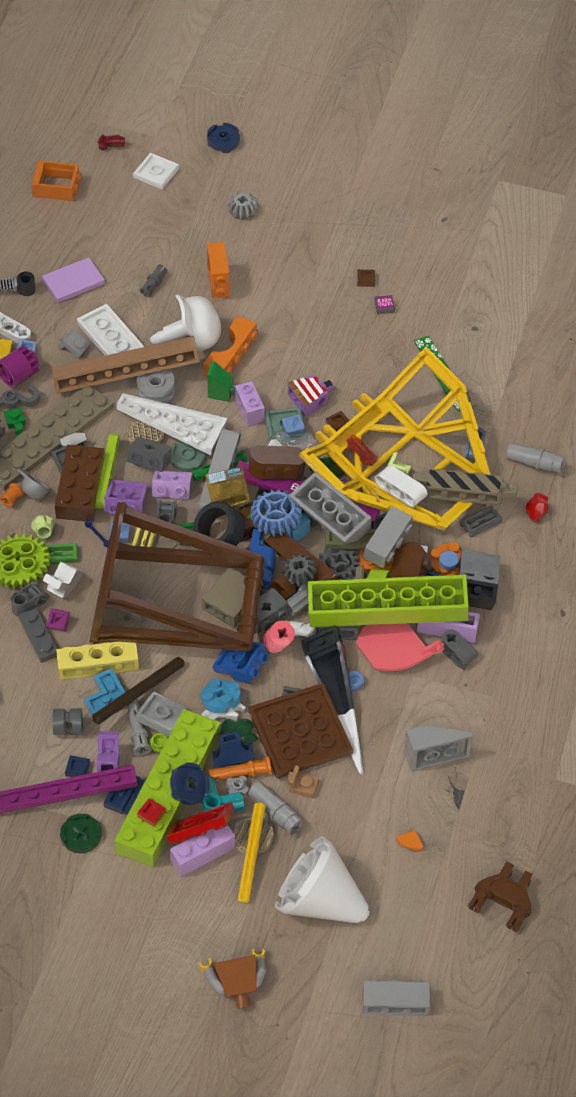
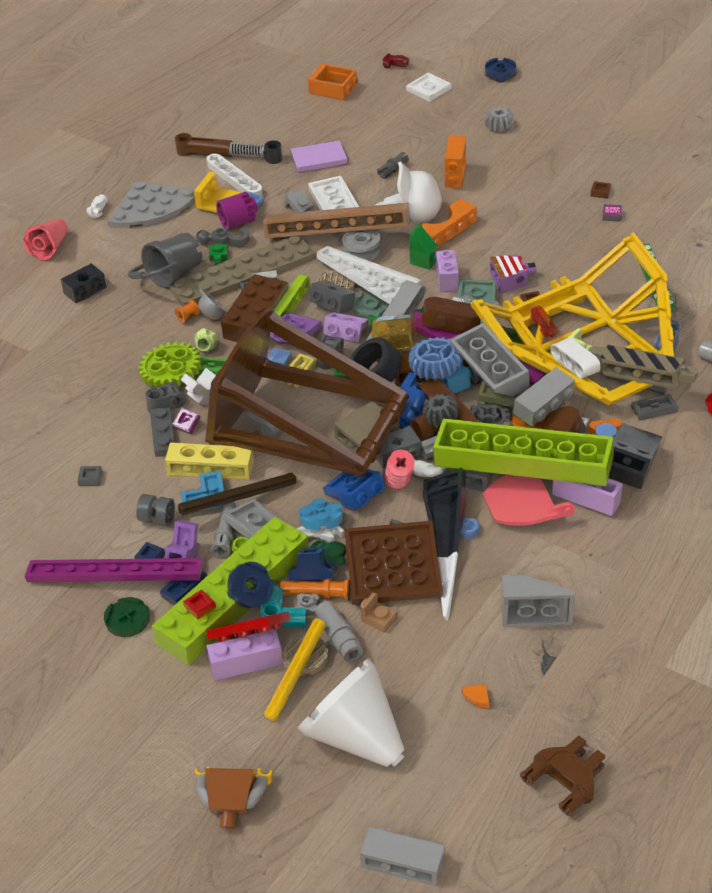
camera: 20 degrees right, 10 degrees down
(293, 425) = (483, 292): medium blue tile -> none
(459, 649) = (590, 516): dark grey piece -> none

